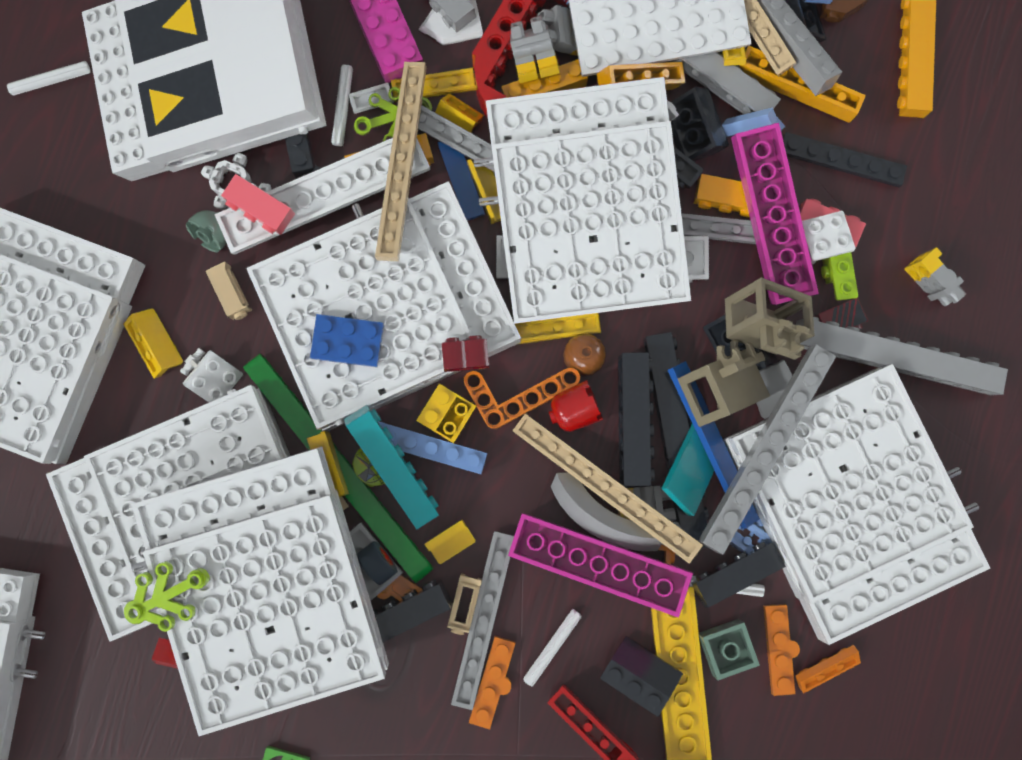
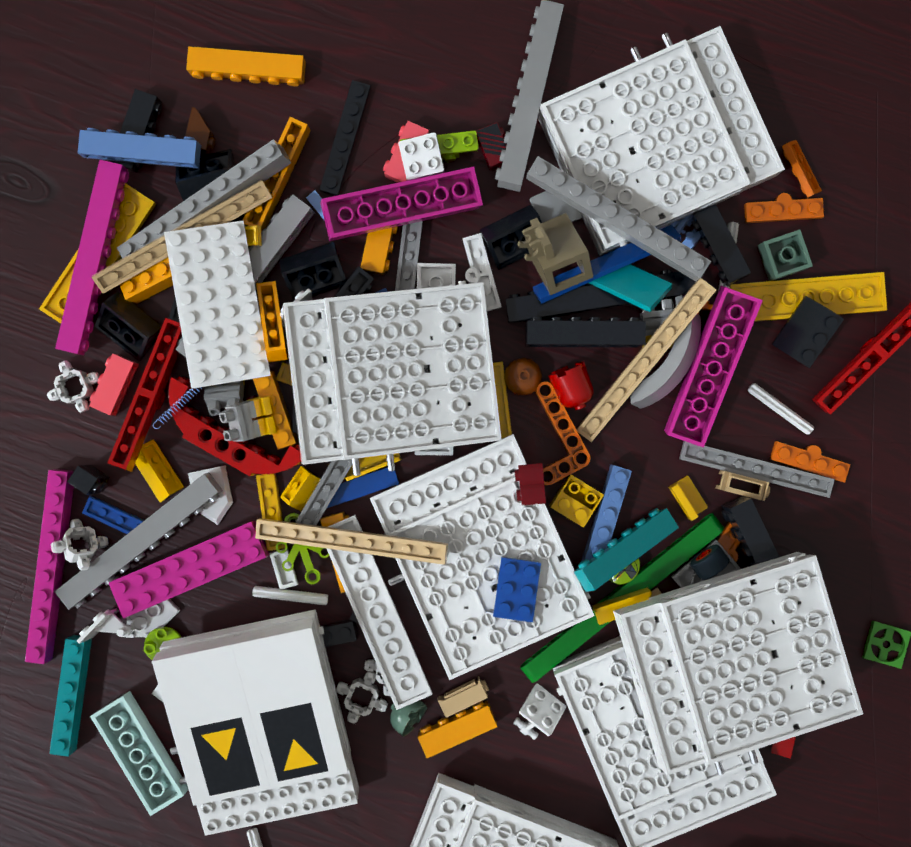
camera: 85 degrees left, 5 degrees up
(152, 342) = (508, 764): yellow panel -> none
(162, 598) = (748, 746): lime plant -> none
(192, 284) = (456, 729): none -> light orange brick
(257, 205) = (391, 671): coral brick -> none
(698, 308) = (480, 270): none -> white hinge
(749, 121) = (313, 223): light blue piece -> none
(766, 327) = (502, 218): dark tan piece -> none
(936, 278) = (458, 60): light grey hips -> none

